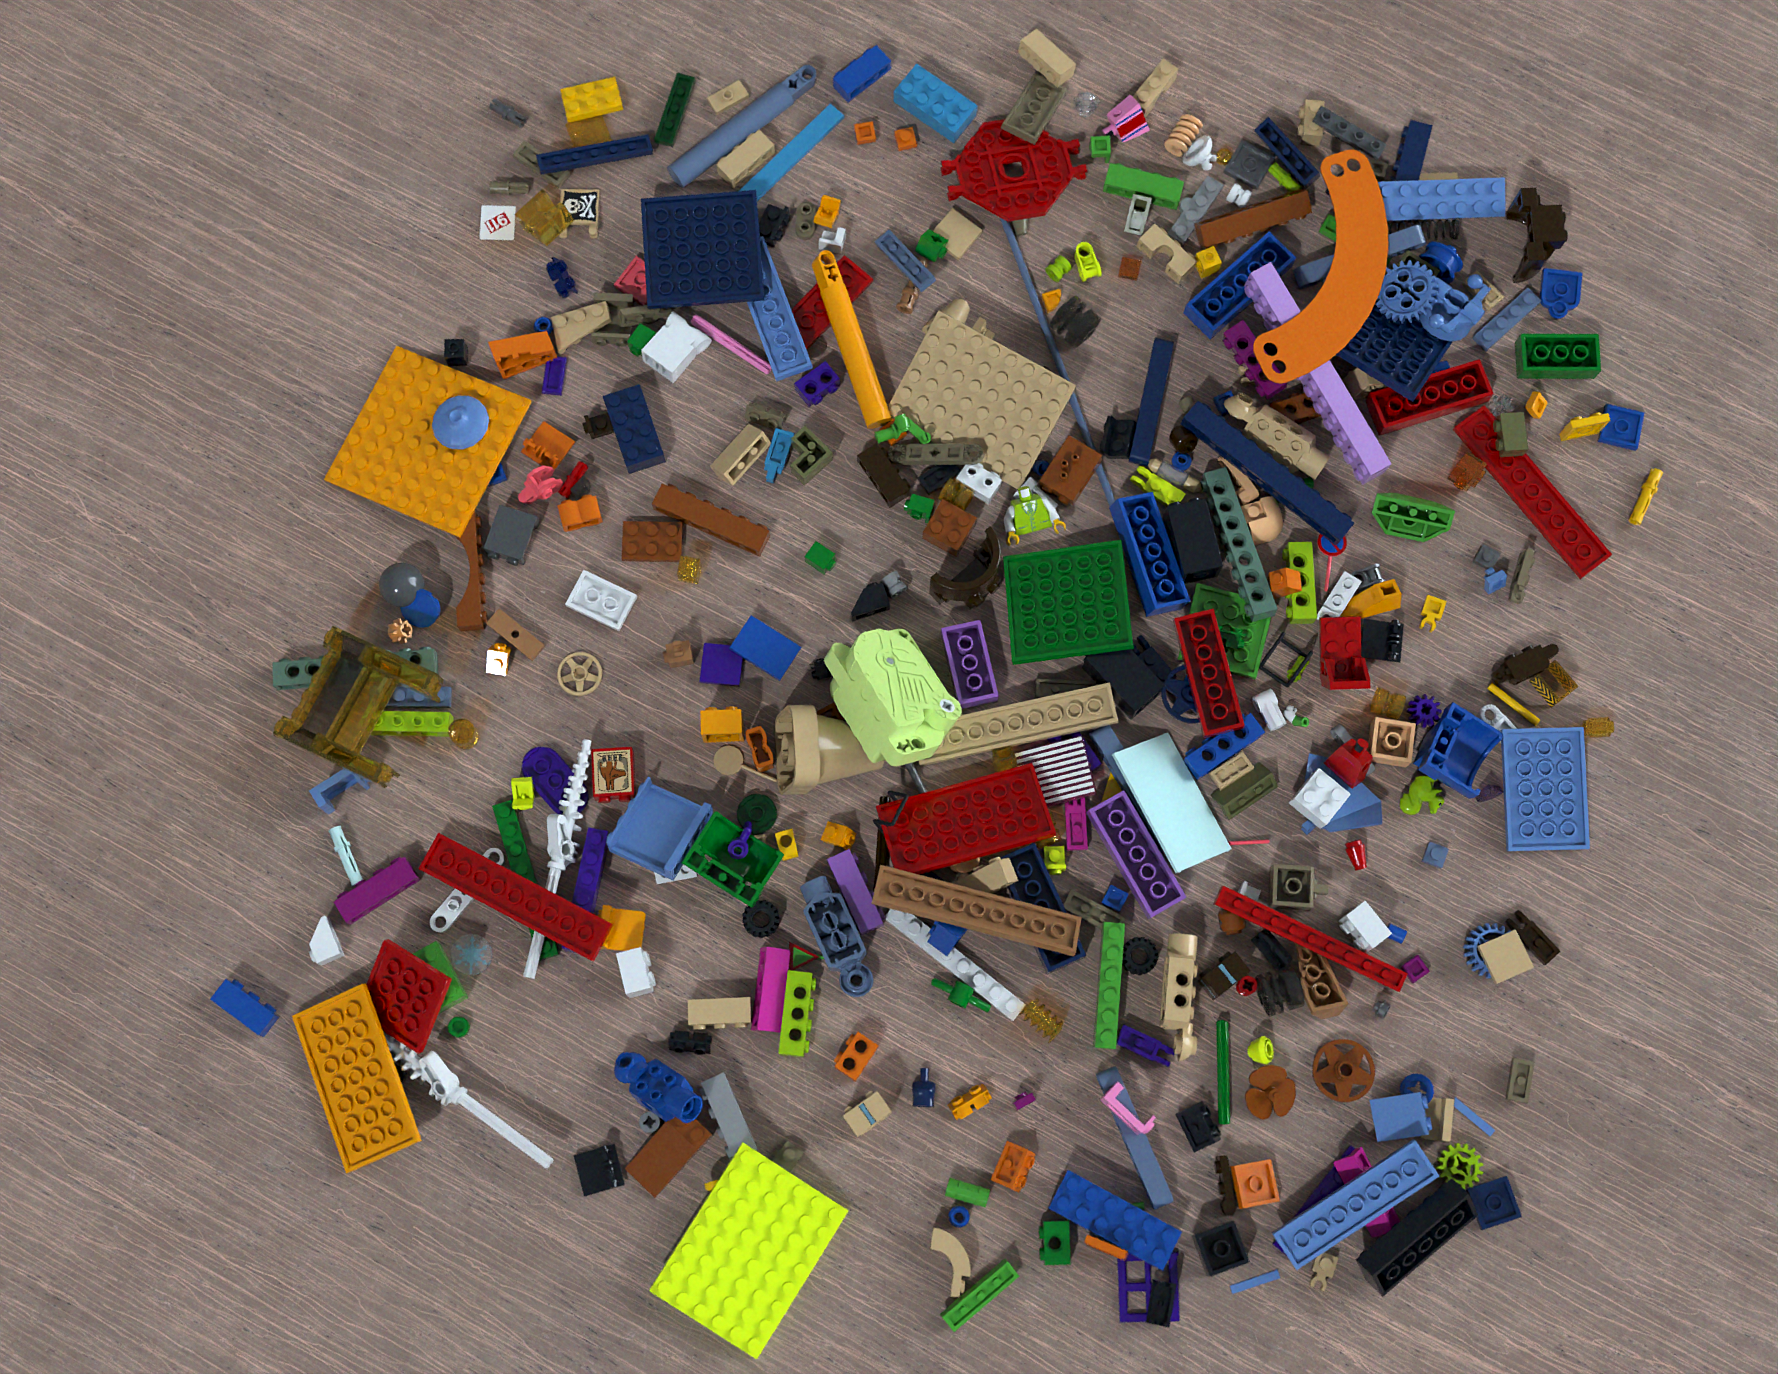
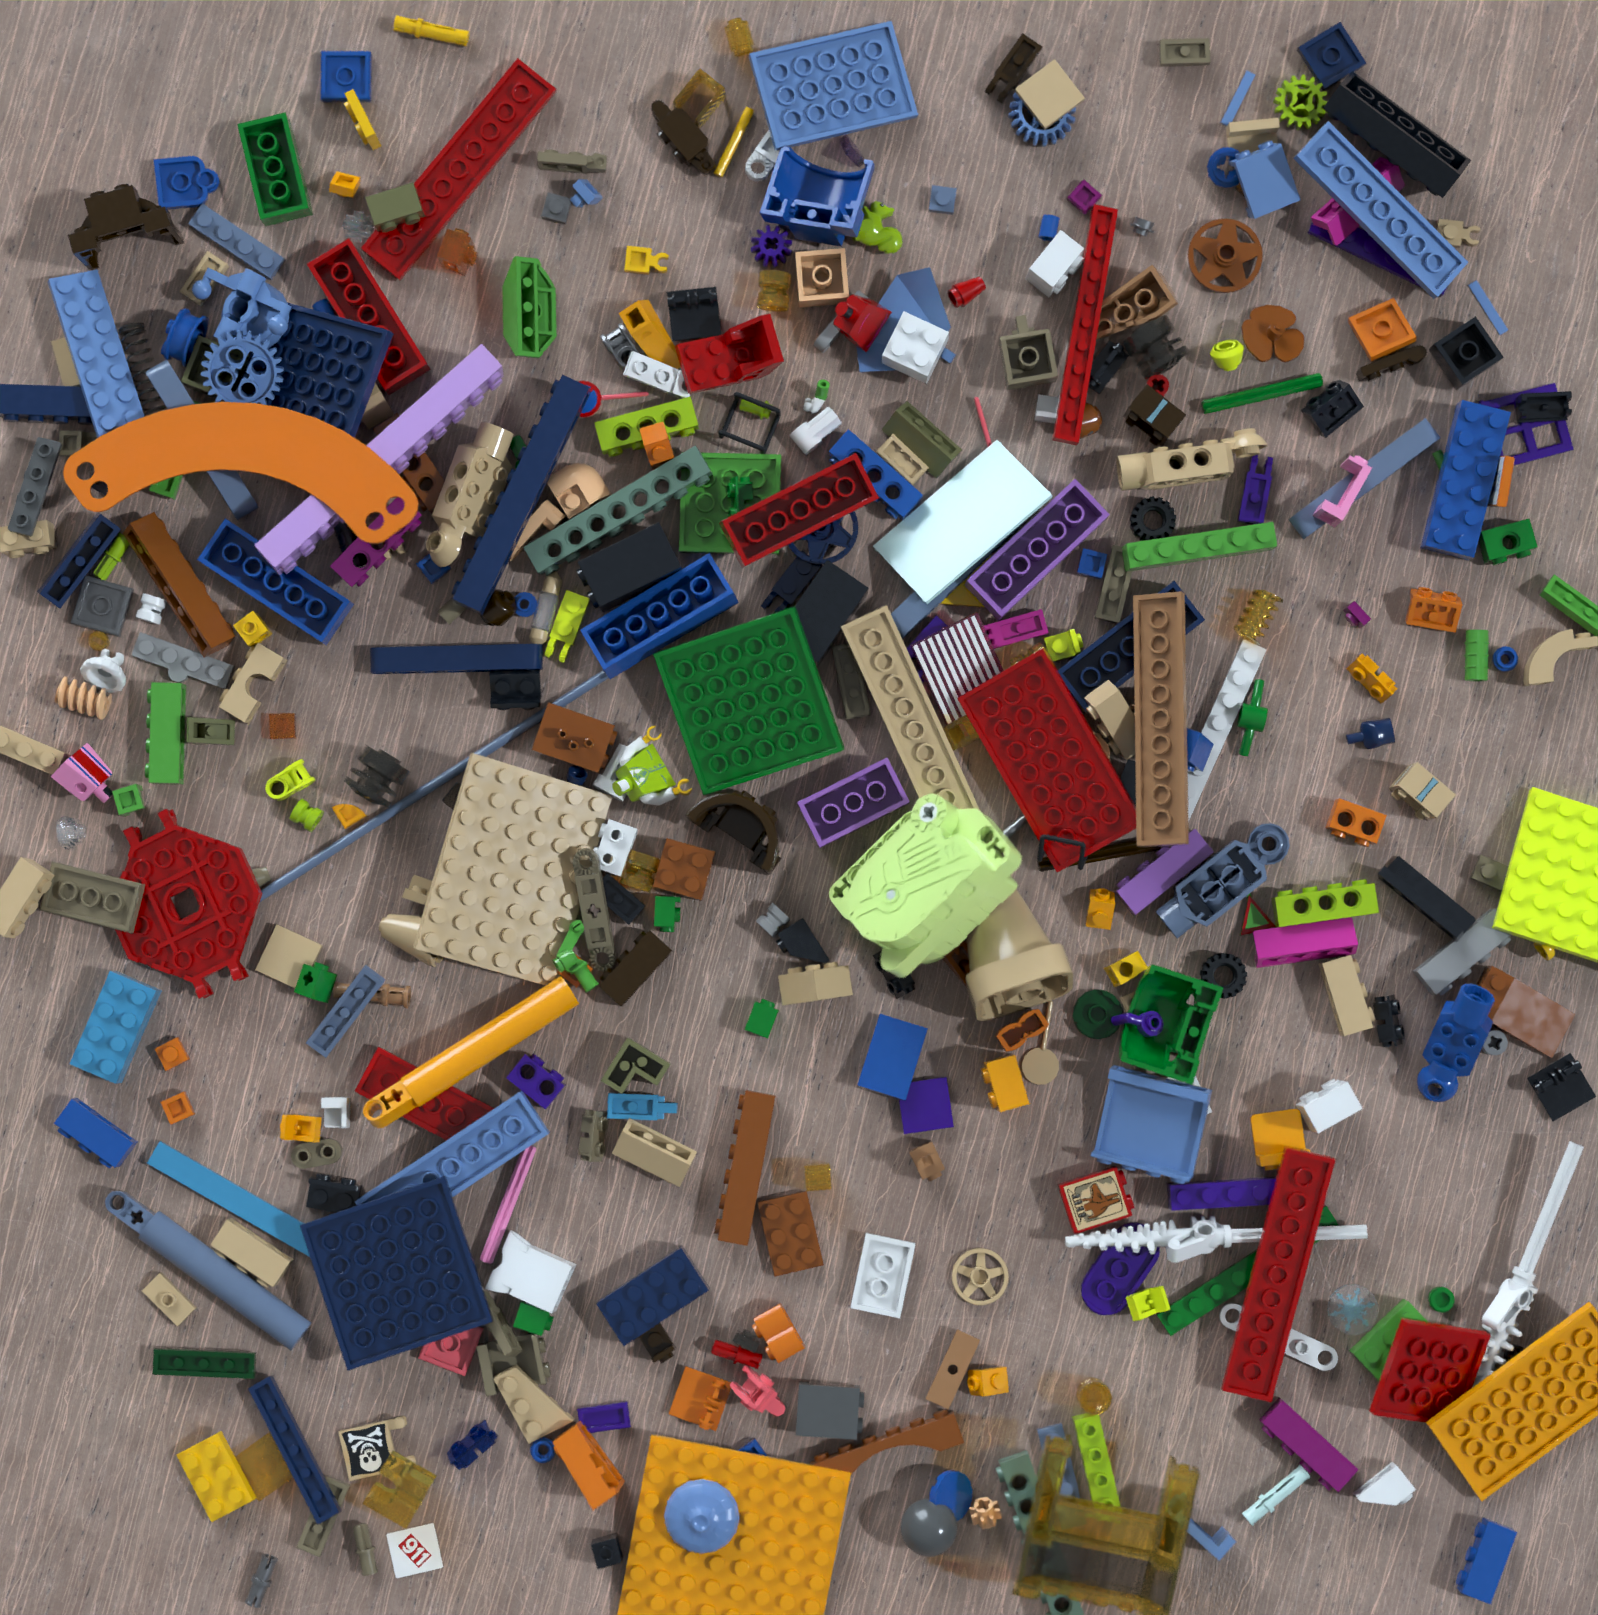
camera: 100 degrees left, 10 degrees up
(779, 1097) = (1427, 898): none -> black panel
(836, 599) = (815, 983): none -> tan brick

